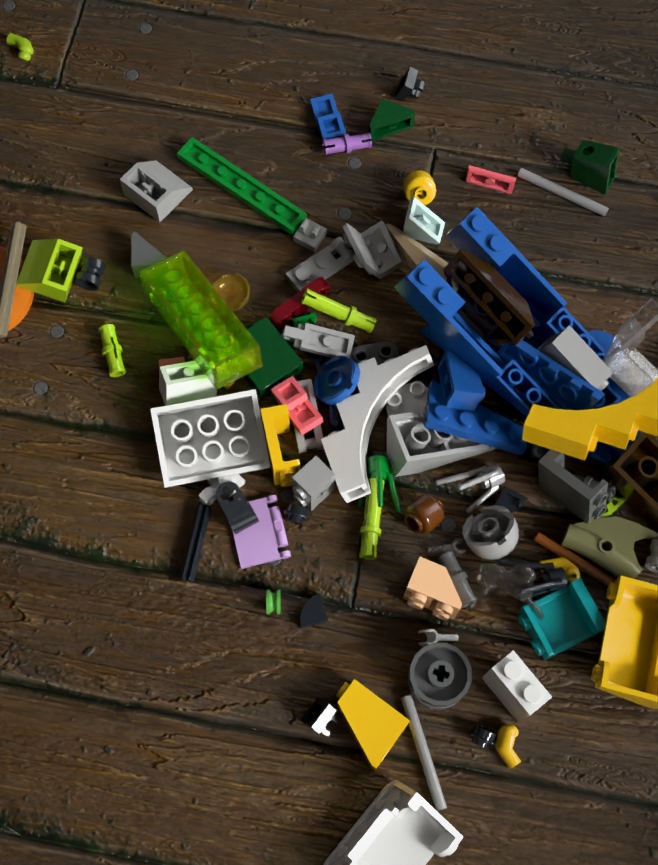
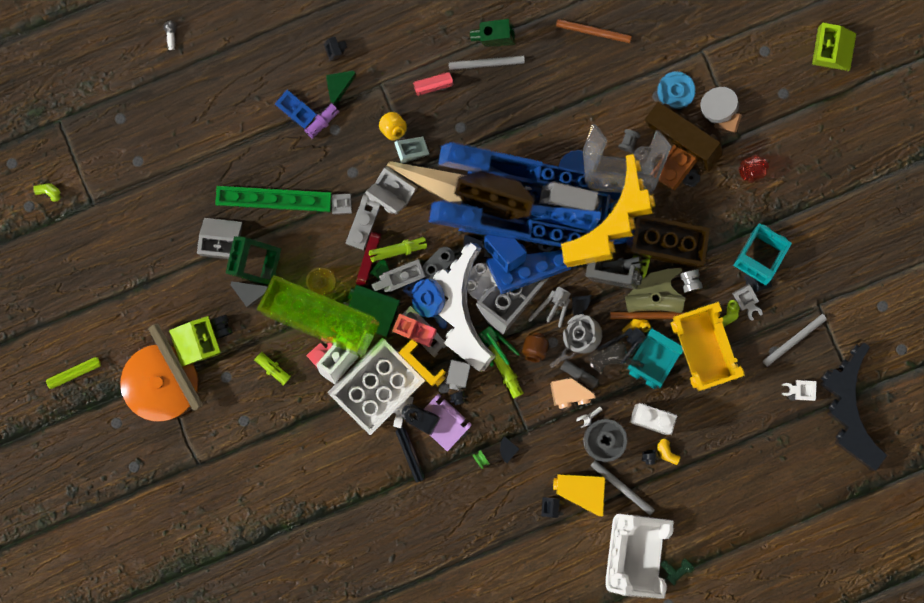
camera: 30 degrees left, 15 degrees up
(157, 205) = (240, 248): none -> dark green window

